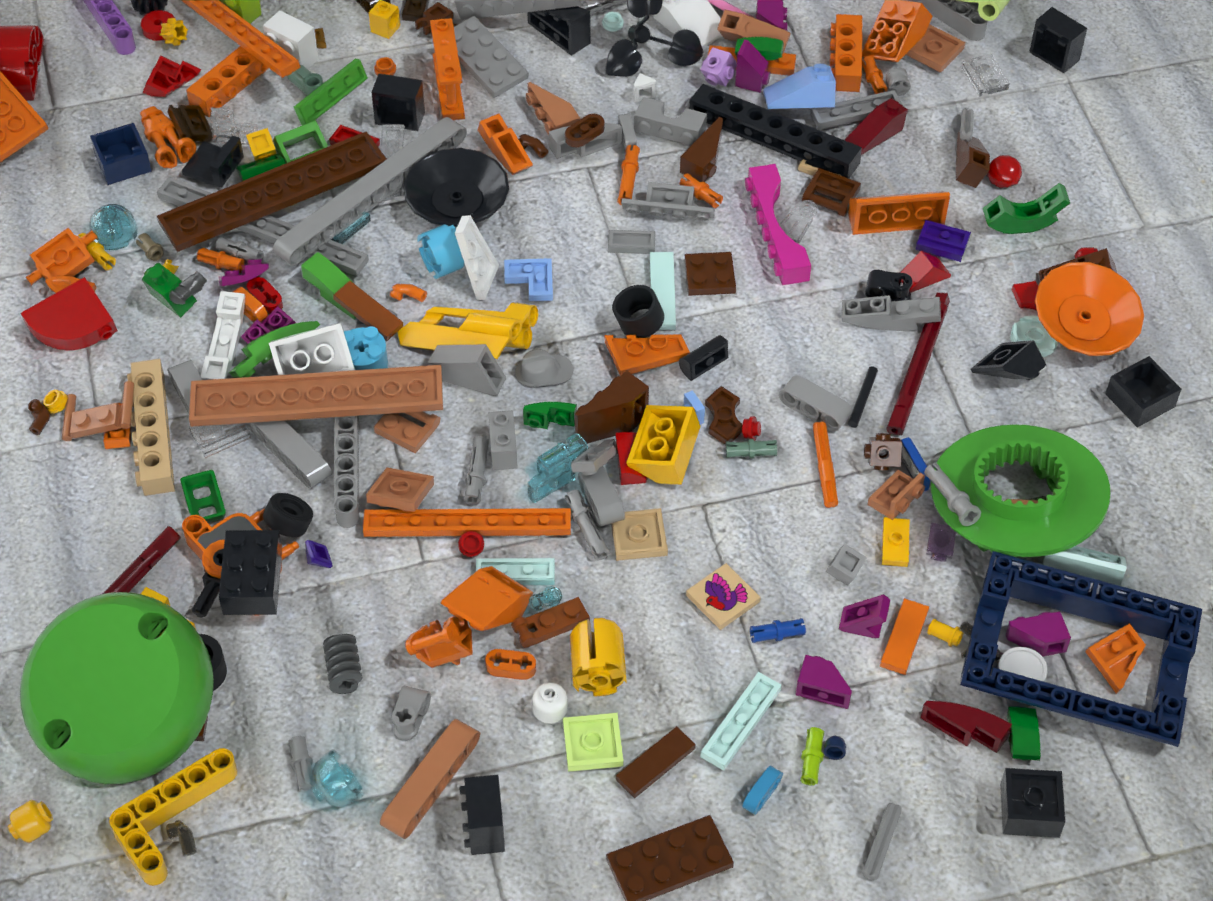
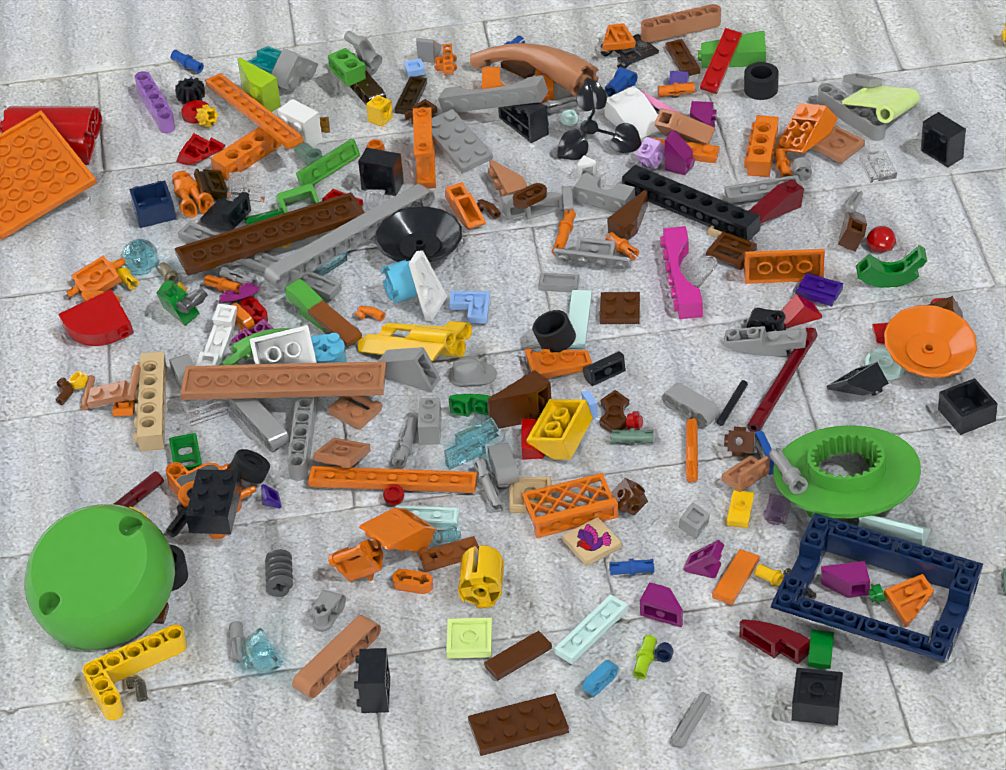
camera: 10 degrees right, 10 degrees down
(30, 821) = (22, 668): yellow head -> none
(261, 144) = (265, 199): yellow brick -> none
(550, 703) = (438, 607): white head -> none
(594, 458) = (501, 435): light grey hinge -> none
(694, 566) = (574, 516): none -> orange fence
(762, 534) = (629, 496): none -> reddish brown brick
(768, 47) = (694, 139): green slope -> none
(804, 89) = (722, 171): light blue slope -> none
(1024, 662) = (831, 597): white piece -> none
(1077, 651) = (876, 593): none -> green plate

